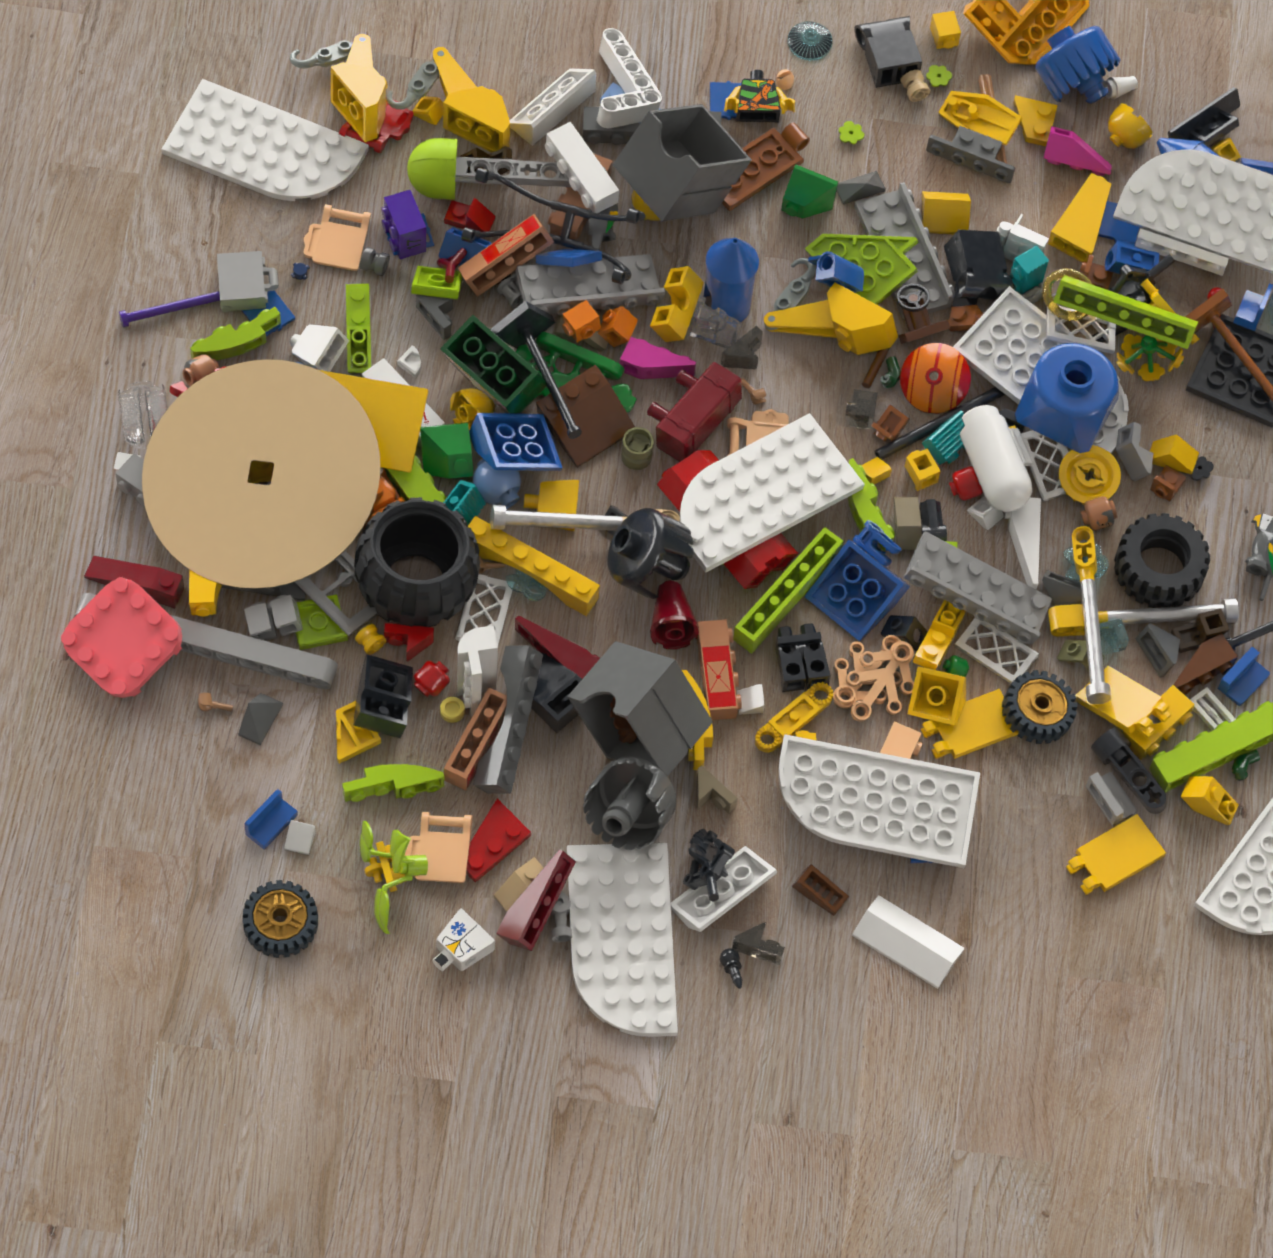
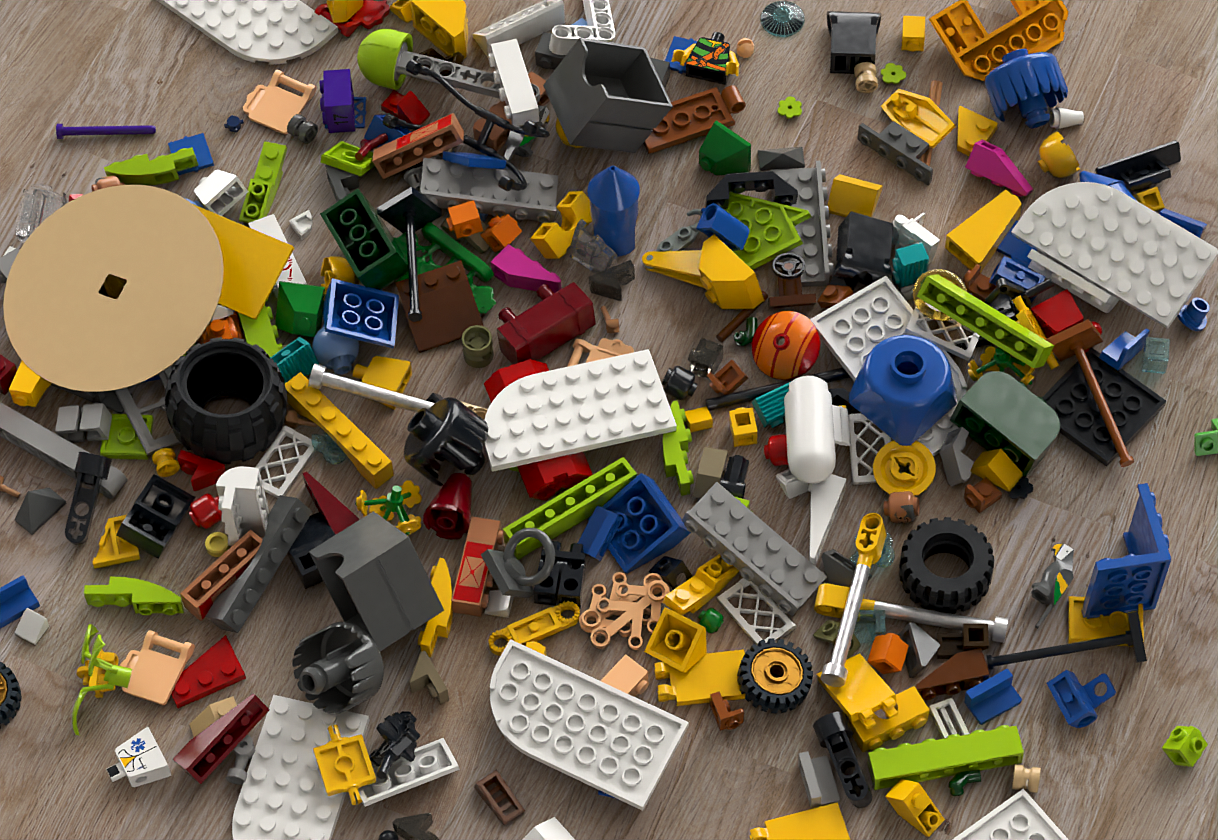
camera: 25 degrees right, 5 degrees down
(243, 280) = (177, 120): light grey piece -> none
(309, 667) = (91, 471): none -> black beam
(624, 618) = (394, 502): none -> plant
(666, 896) = (344, 765): none -> yellow plate
(755, 667) = (510, 573): none -> dark grey tile
(823, 606) = (599, 532): none -> blue panel
(846, 438) = (679, 382): none -> black head
(868, 541) = (666, 478): blue piece -> none
(878, 222) = (759, 181): none -> black slope
(1001, 756) = (723, 715): none -> dark orange bracket
(1136, 659) = (888, 653): none -> orange brick
(1174, 402) = (1008, 417): none -> brick
(1183, 289) = (1057, 313): none -> red torso

